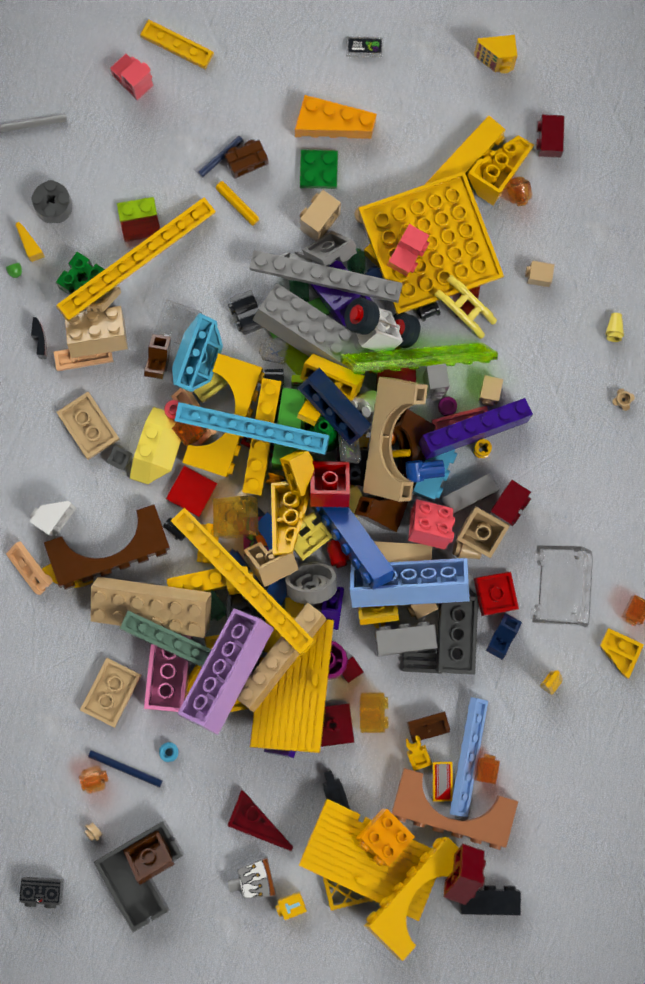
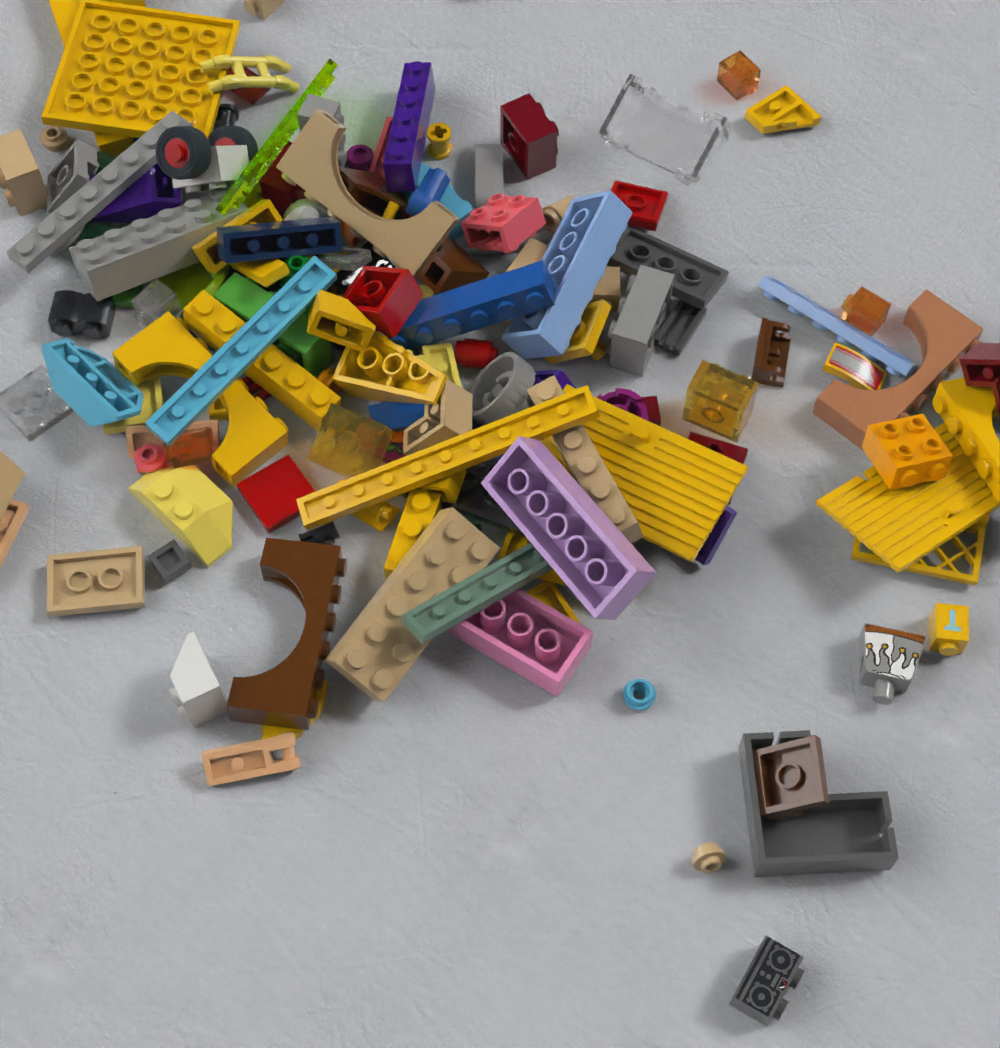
camera: 60 degrees left, 20 degrees down
(93, 779) = (627, 816): clear orange head -> none
(110, 692) = (506, 732): tan plate -> none
(125, 768) = (632, 768): dark blue bar -> none
(158, 356) = (61, 441): reddish brown brick -> none
(251, 820) = (797, 628): dark red wing -> none
(334, 790) = (801, 504): black hinge -> none
(411, 245) = (134, 79): coral brick -> none
(418, 754) = (807, 378): yellow plate -> none
(482, 532) = (547, 172): tan slope -> none
(490, 390) = (370, 102): tan brick -> none
(503, 636) = (693, 222): dark blue slope -> none
(552, 681) = (782, 191): yellow slope -> none

